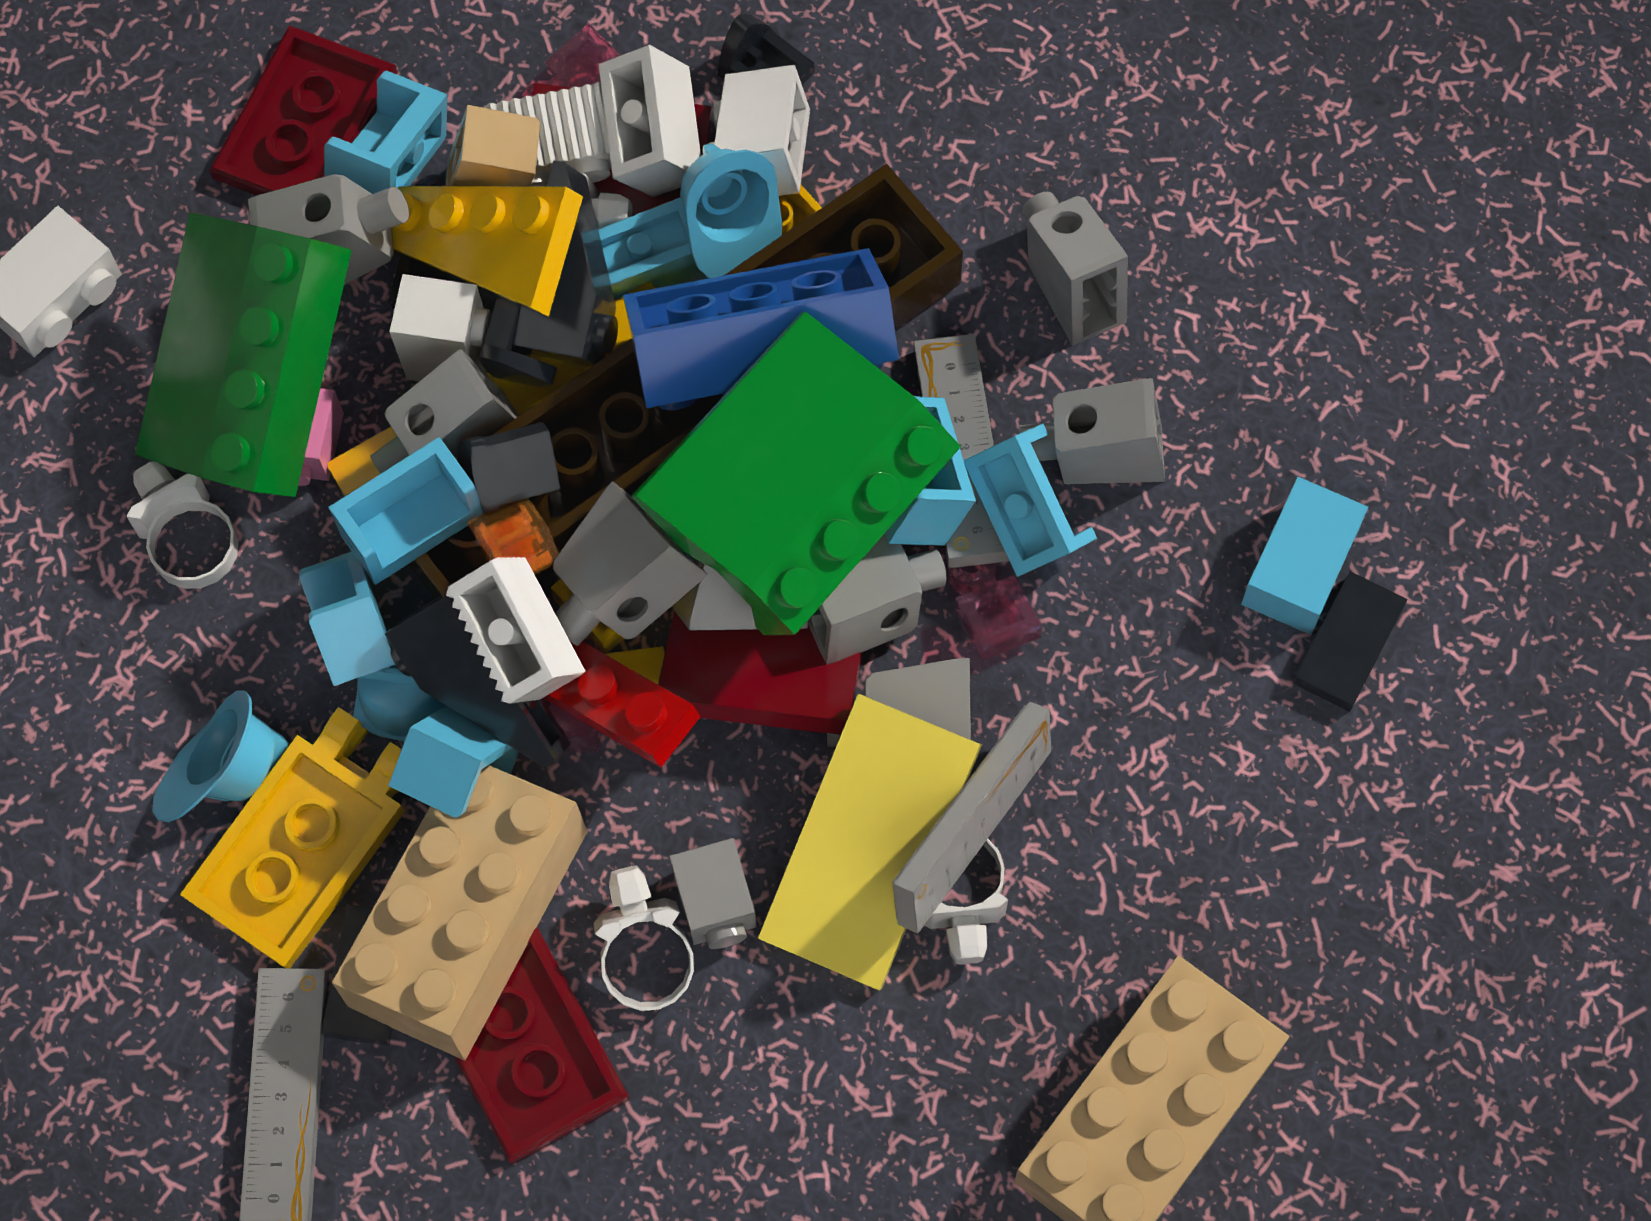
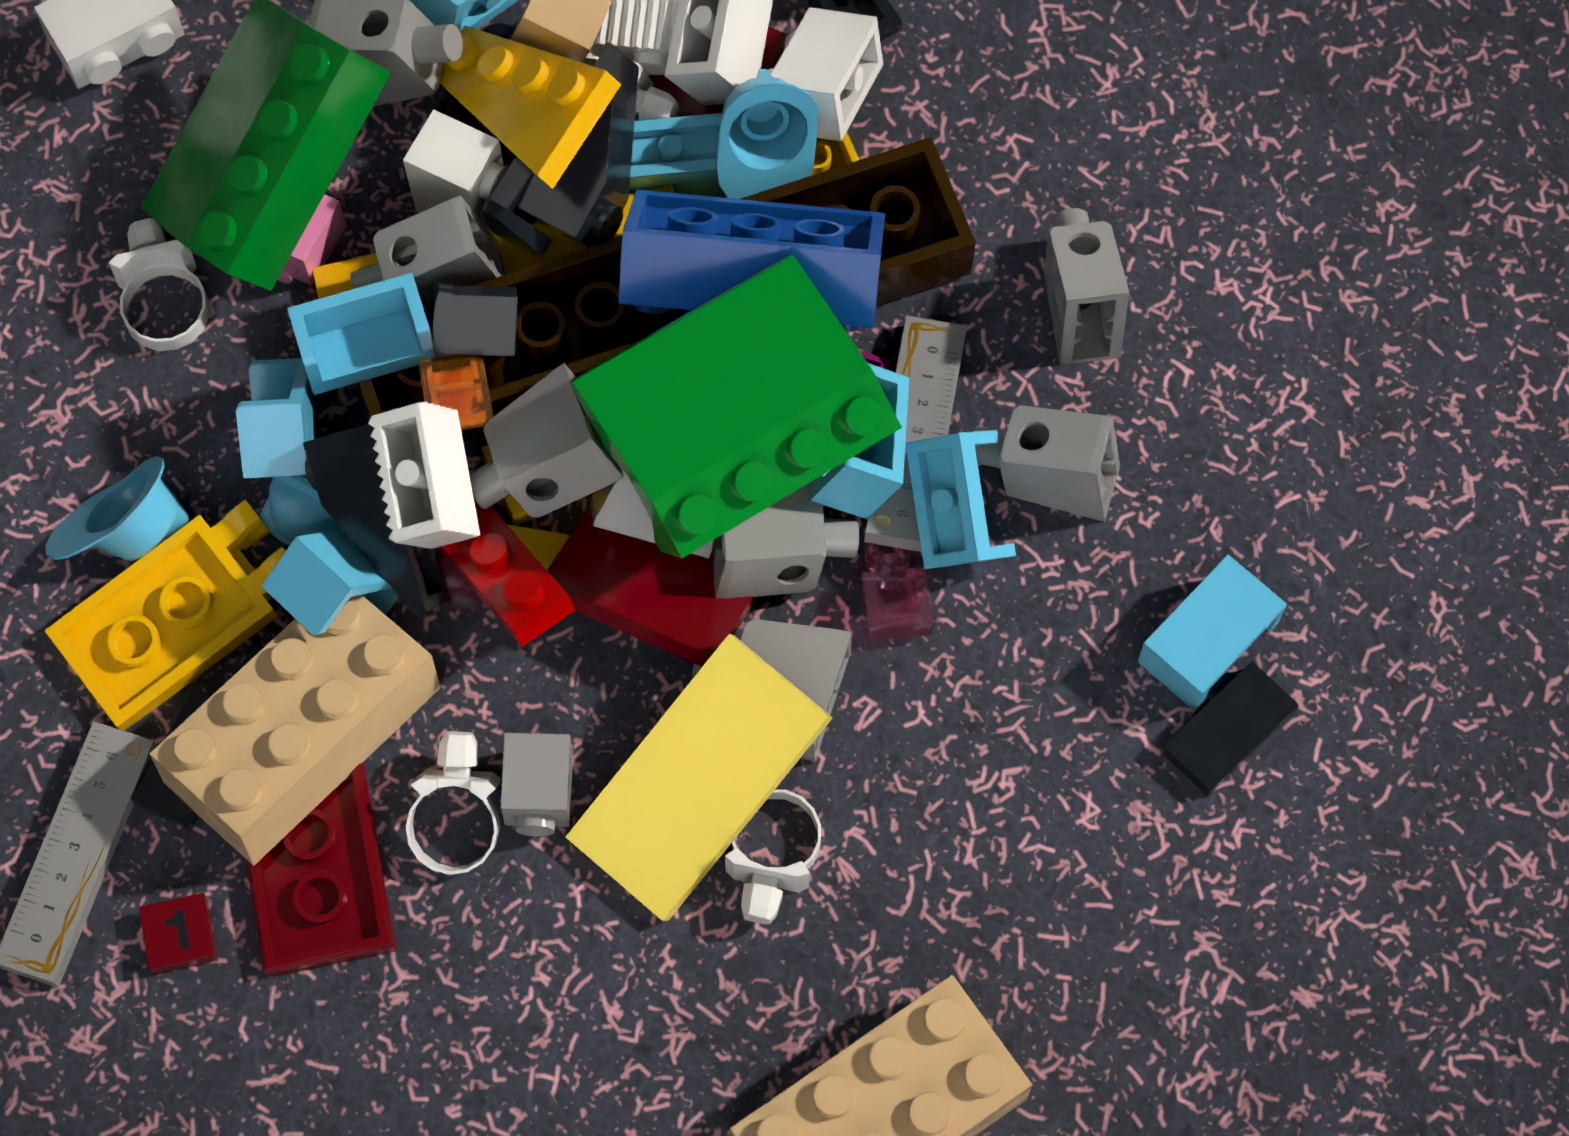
camera: 15 degrees right, 0 degrees up
(411, 1149) = (178, 933): none -> dark red tile
(972, 817) = (802, 783): light grey tile -> none

